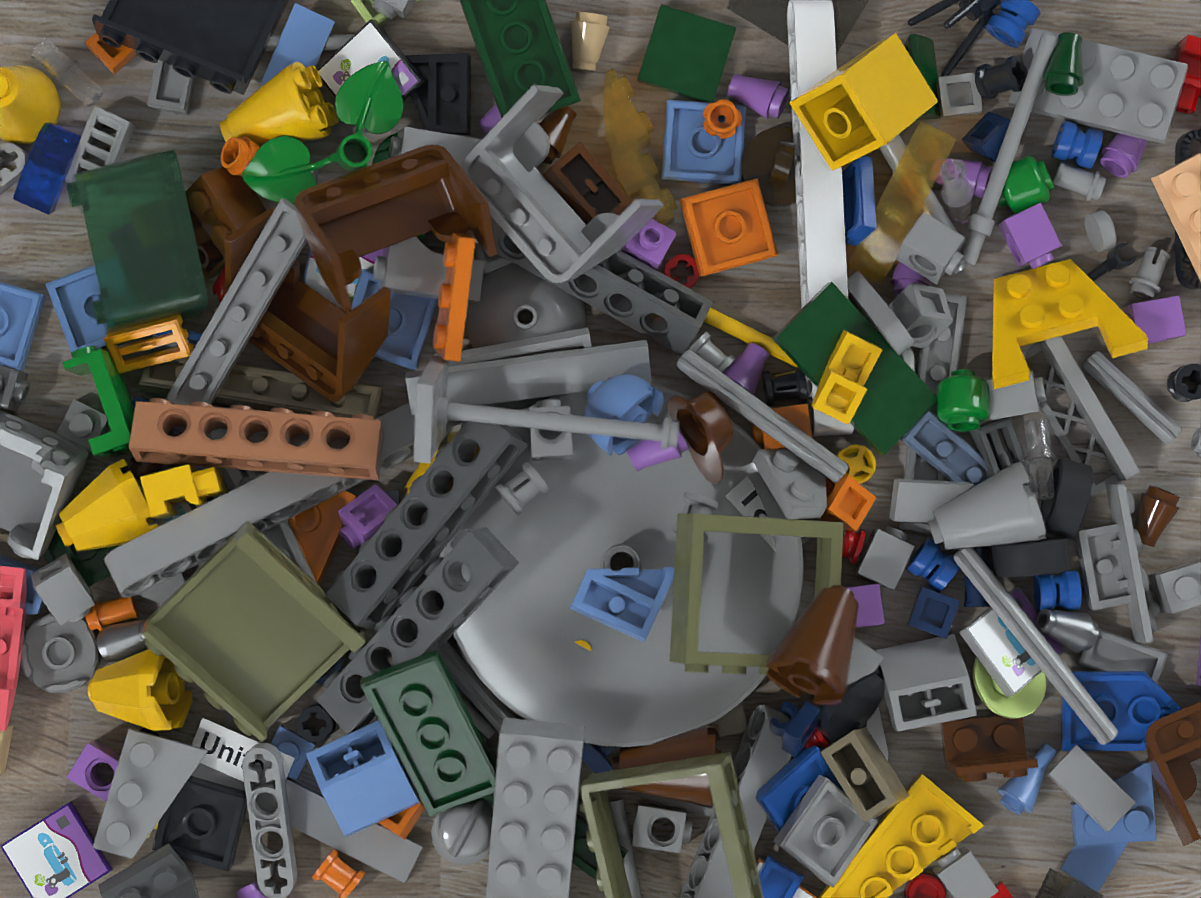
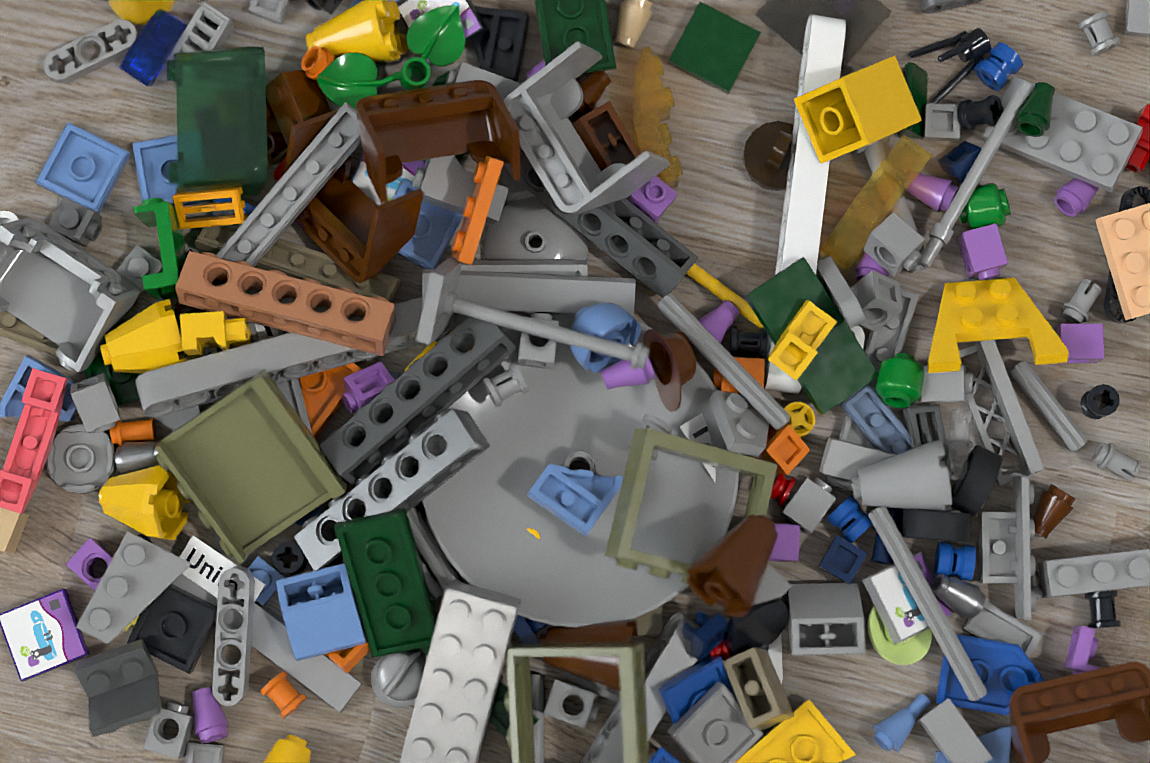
camera: 15 degrees right, 5 degrees down
(672, 265) = (669, 222): red bush -> none
(693, 154) = (715, 124): medium blue tile -> none
(711, 353) = (688, 300): light grey bush -> none
(721, 108) = (734, 96): orange plate -> none
(728, 227) = (723, 198): orange tile -> none
(760, 95) = (771, 92): medium lavender cone -> none
(858, 200) = (839, 194): blue tile -> none
(957, 191) = (925, 201): clear axle -> none
(985, 746) = (868, 682): reddish brown bracket -> none
(1073, 143) = (1035, 180): blue wheel -> none
(1080, 181) = (1033, 212): light grey pin -> none
(1100, 230) = (1044, 258): light grey tile -> none
(1112, 262) = (1050, 288): black hand -> none

